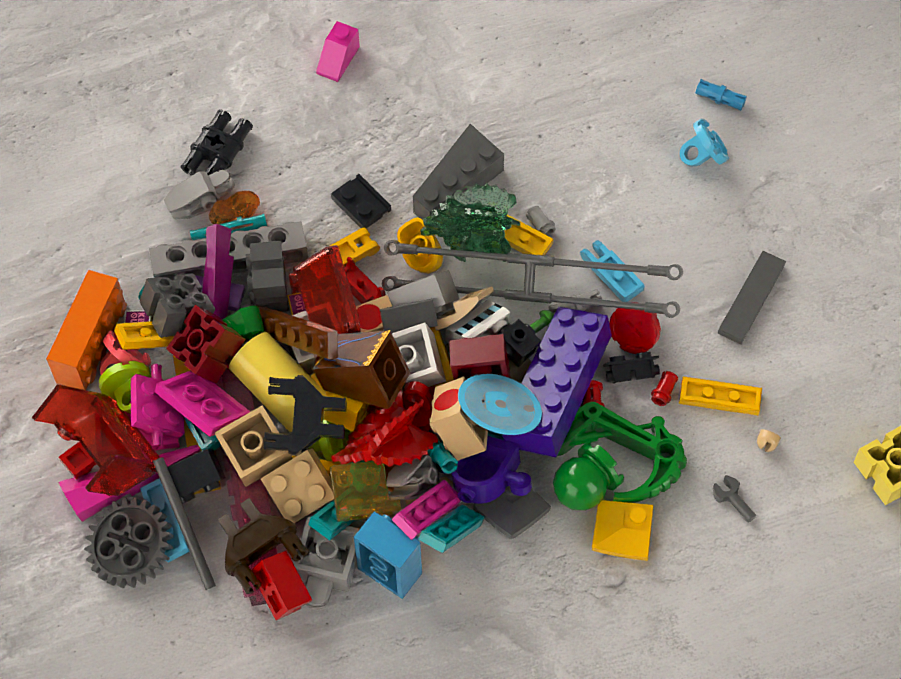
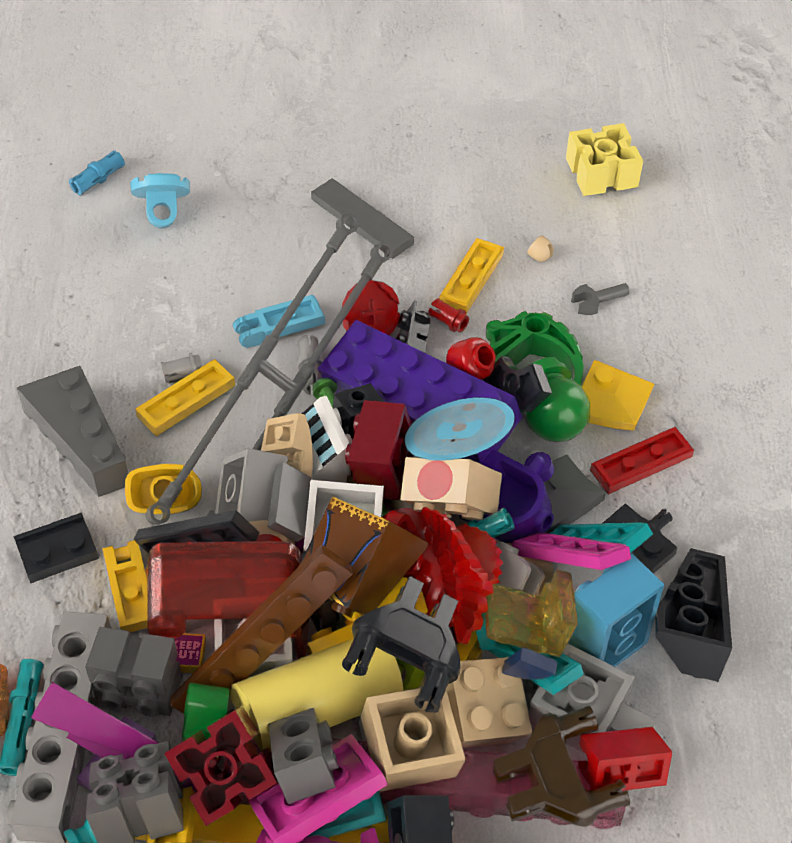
camera: 75 degrees left, 10 degrees down
(220, 383) = (302, 755): none -> dark grey brick
(319, 498) = (529, 665): none -> dark blue tile
(373, 274) = (212, 528): none -> black tile
(422, 619) = (696, 616): none -> black wedge
(473, 220) = (176, 406): clear green piece -> none
(491, 575) = (657, 548): none -> black plate
(568, 564) = (641, 460): none -> red tile
(579, 442) = (526, 384): none -> black tile
(593, 405) = (472, 357): none -> red head

